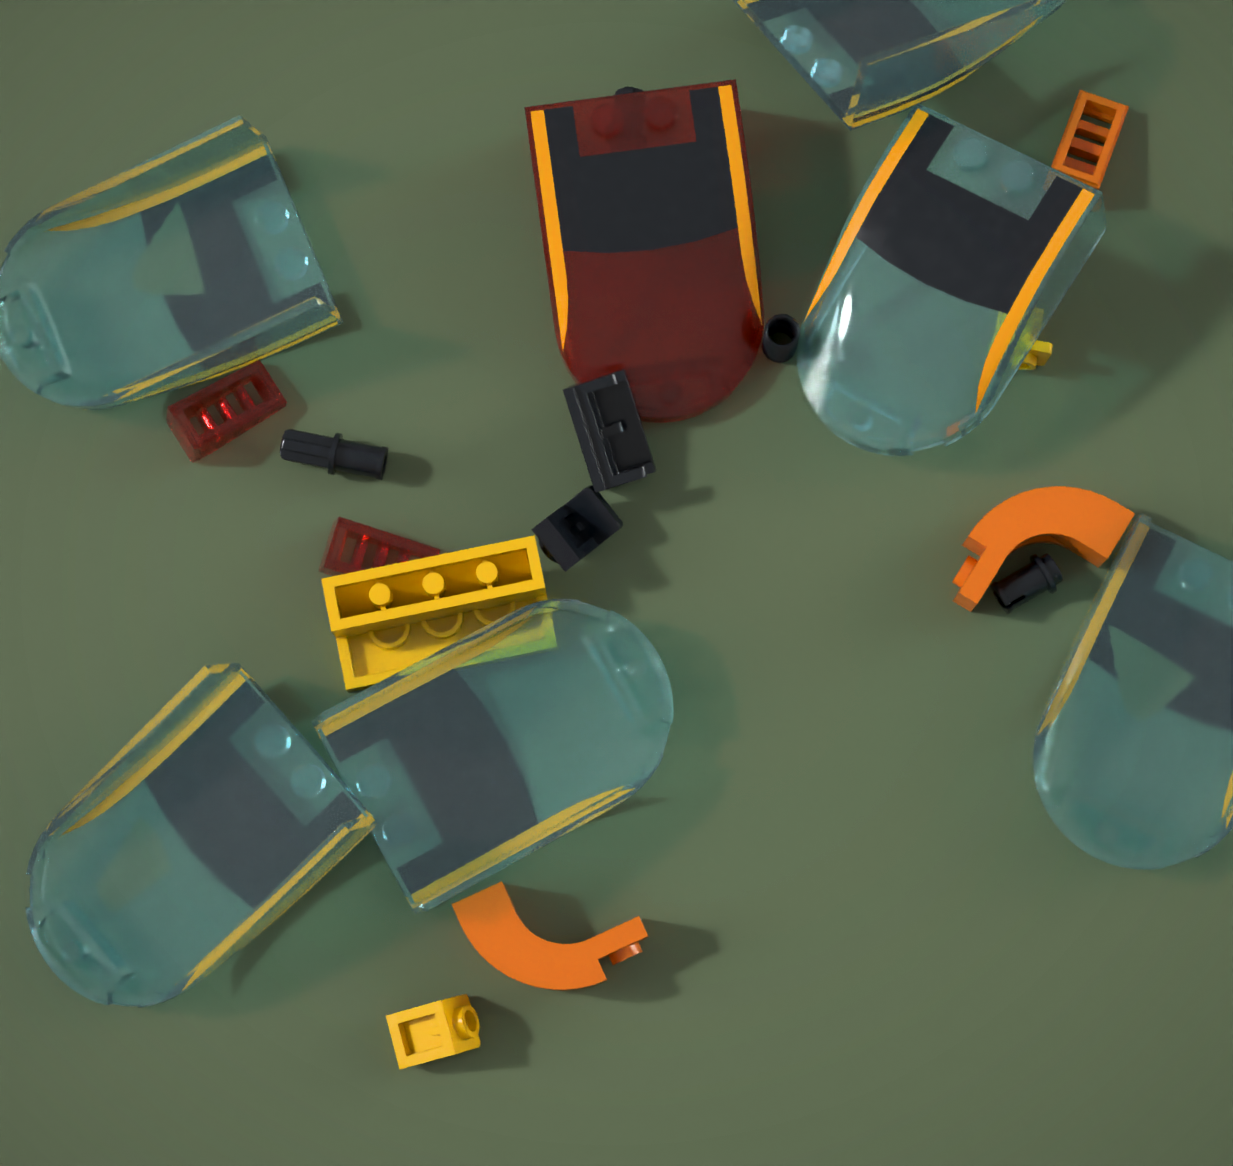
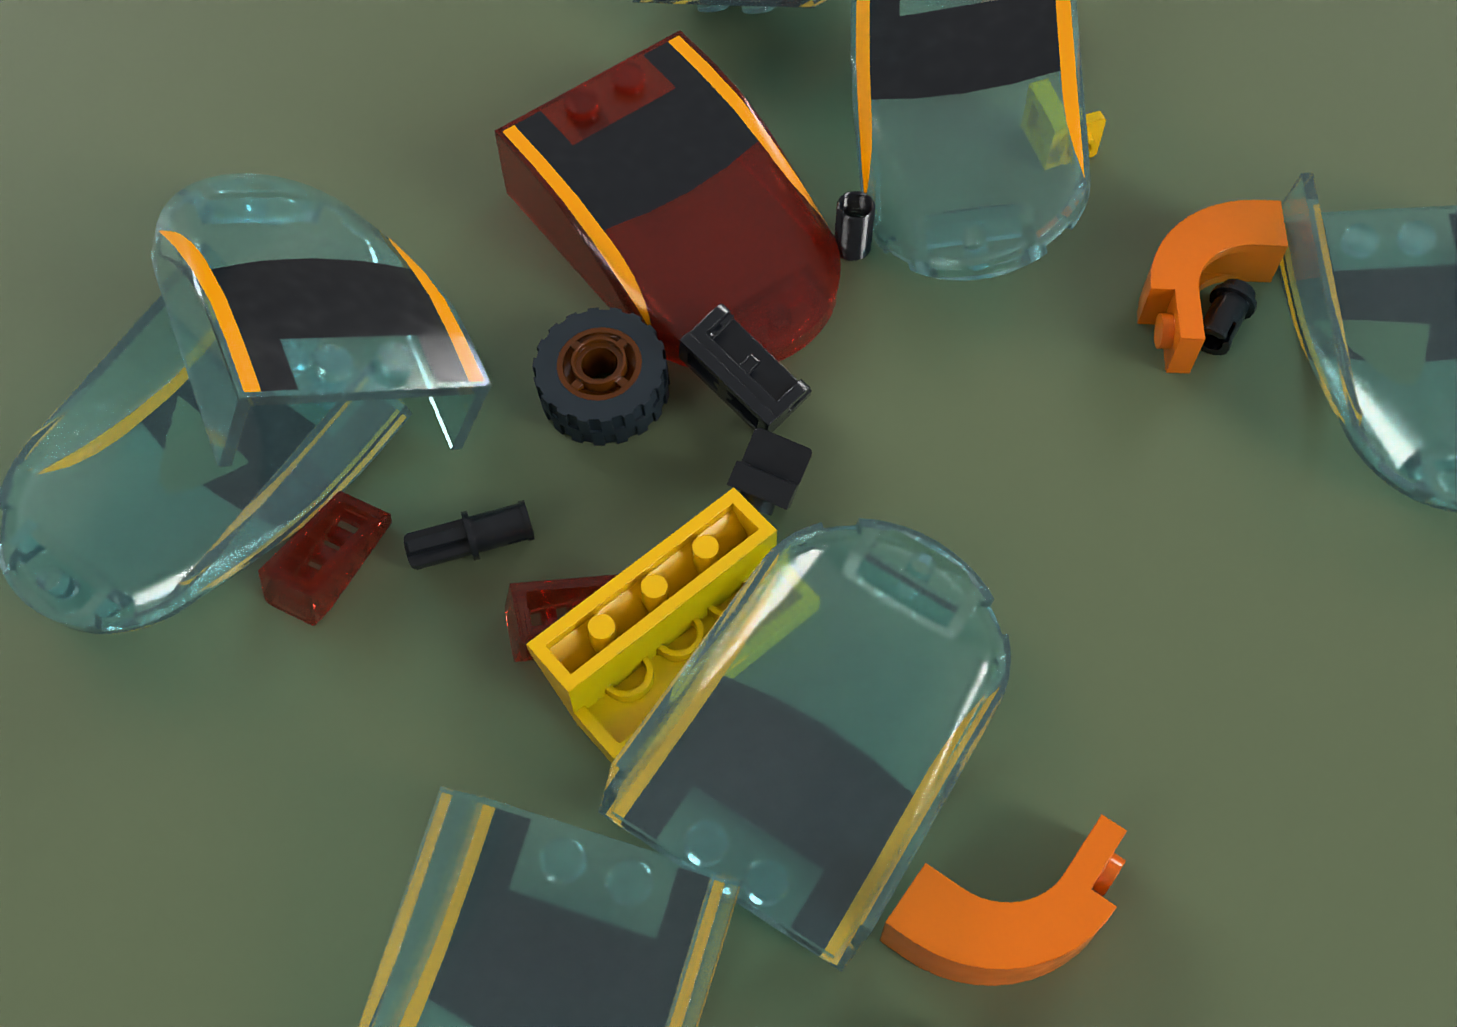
camera: 30 degrees left, 20 degrees down
(296, 199) = (303, 303): none -> clear light blue windscreen
(497, 337) = (607, 407): none -> black wheel

